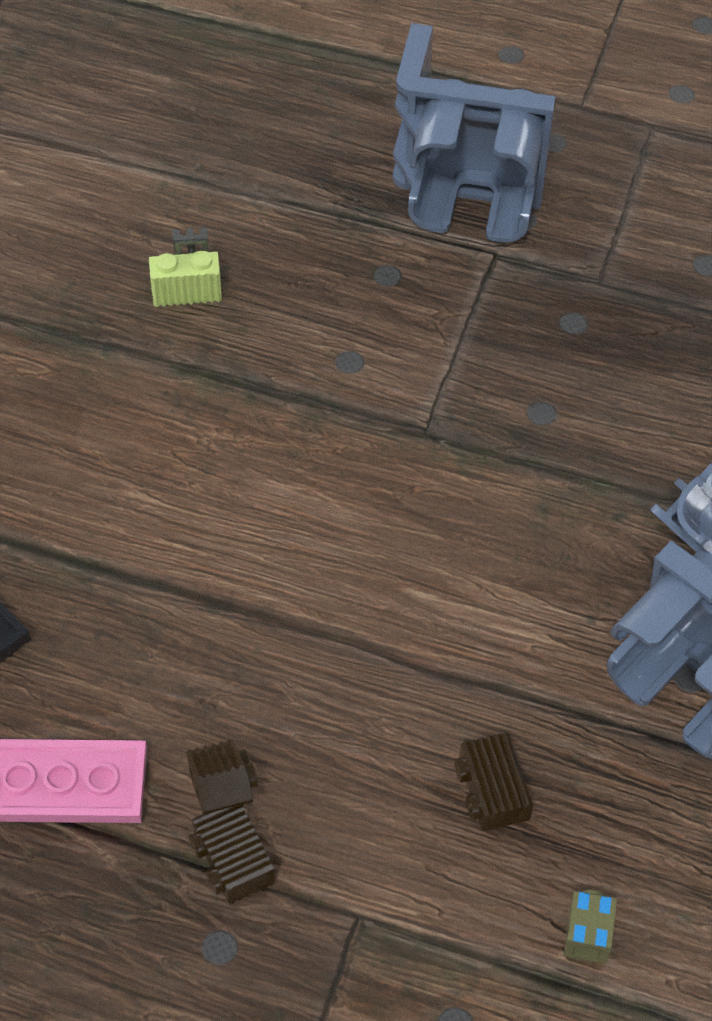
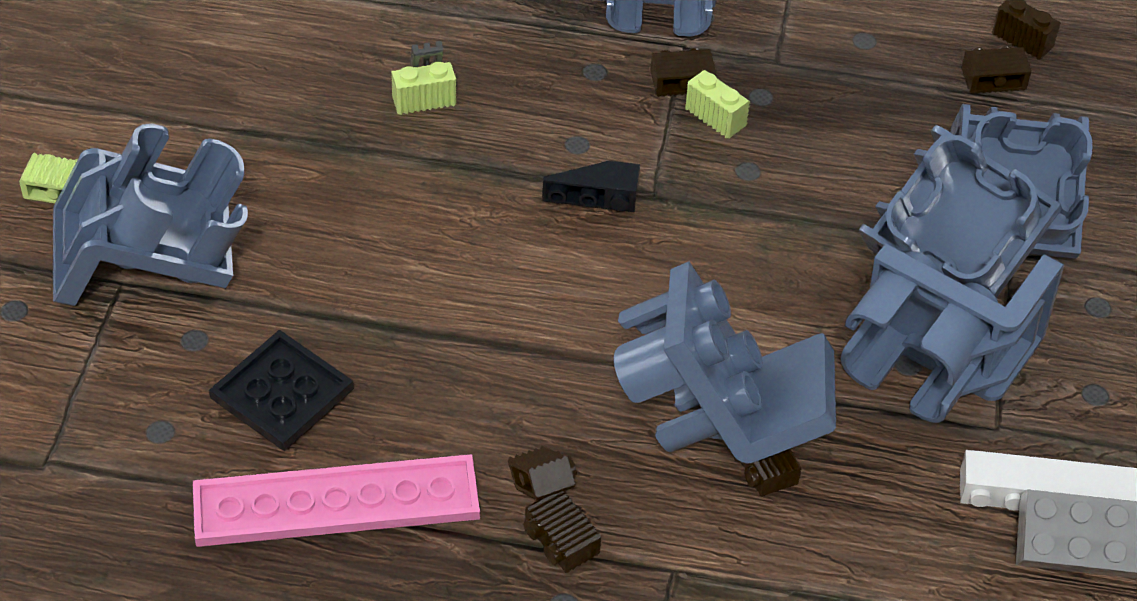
camera: 10 degrees left, 5 degrees down
(361, 416) = (599, 185): none -> black slope
(469, 705) = (744, 398): none -> sand blue piece
(486, 286) = (674, 69): none -> dark brown brick
(518, 328) = (717, 104): none -> yellowish green brick
(590, 926) = (862, 554): olive brick -> none

